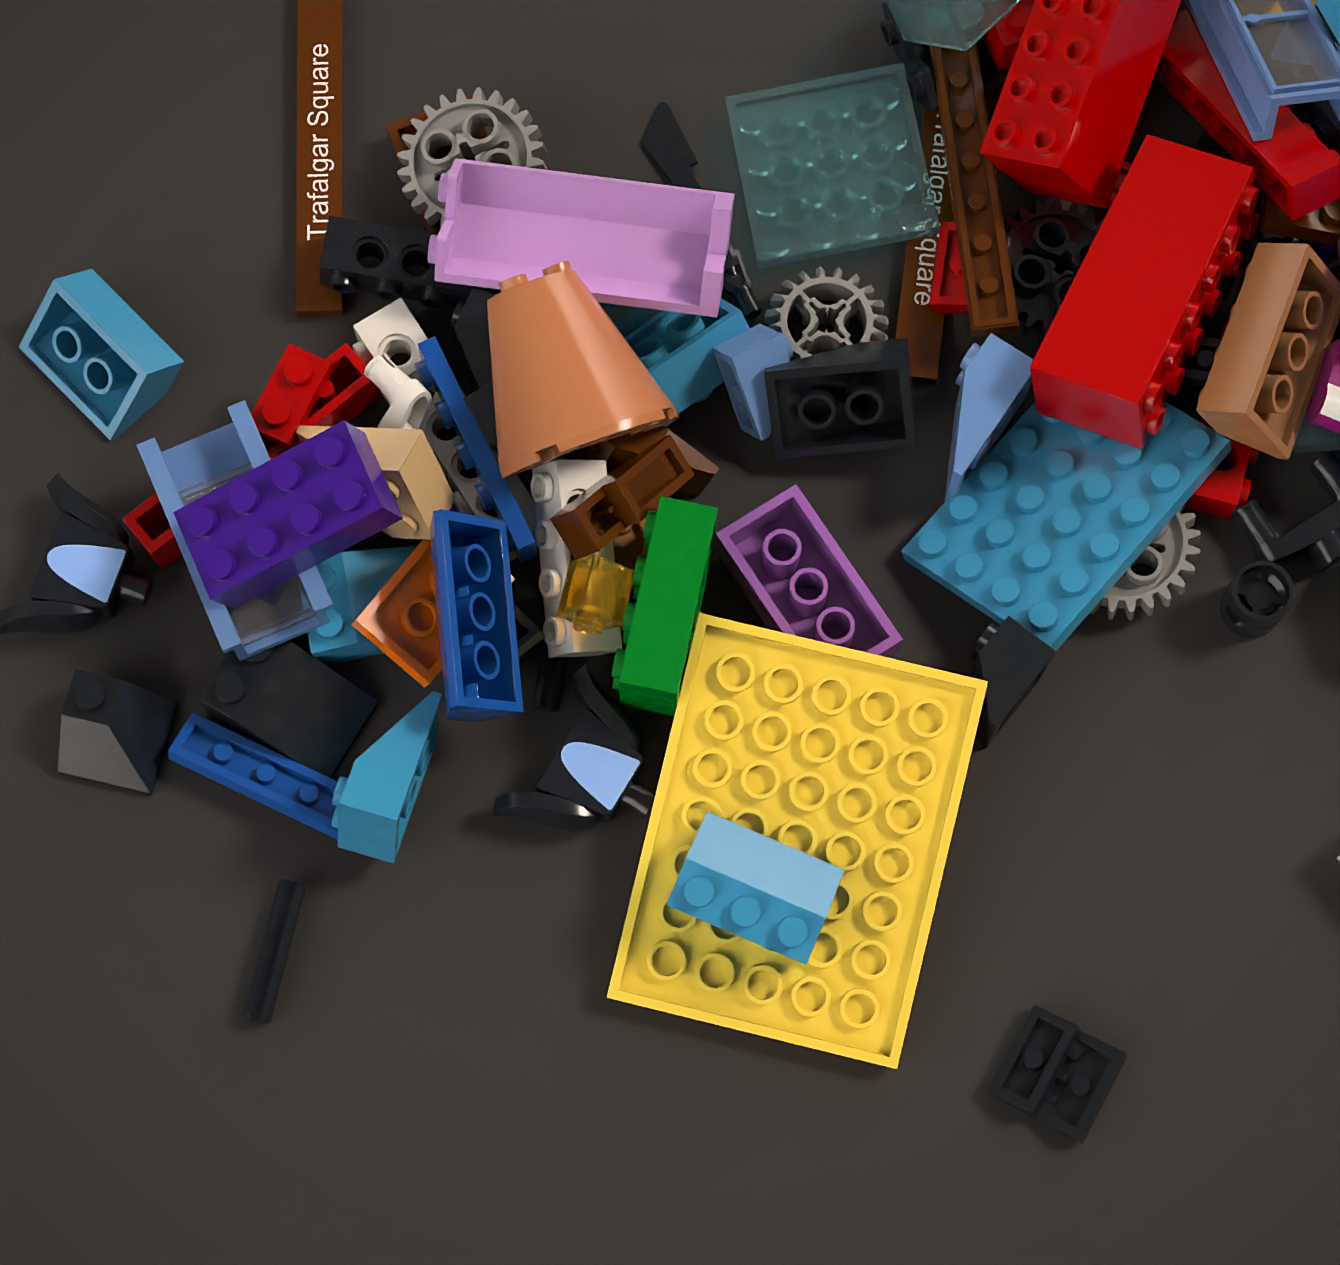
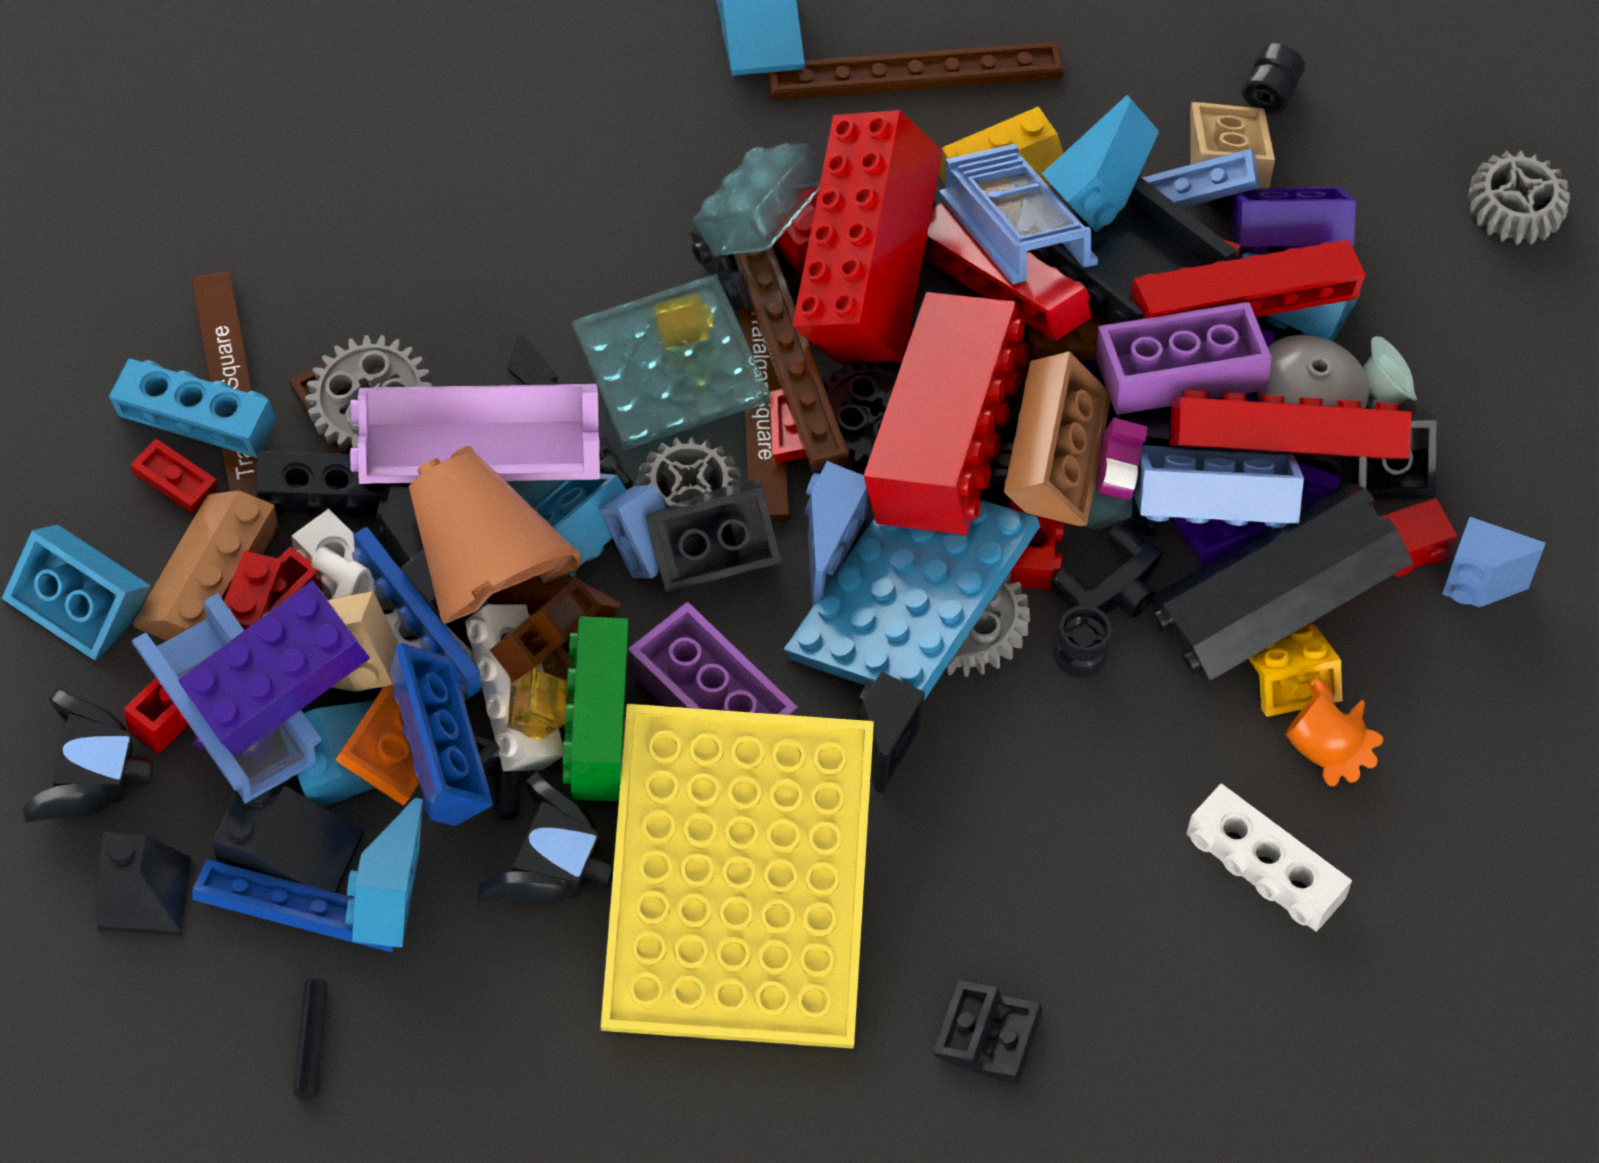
camera: 15 degrees left, 15 degrees down
(235, 225) = (174, 476): none -> red plate
(240, 354) = (206, 561): none -> medium nougat slope
(321, 184) = (242, 432): none -> dark azure brick
(756, 887) = (710, 914): dark azure slope -> none
(853, 121) = (683, 321): none -> clear yellow brick

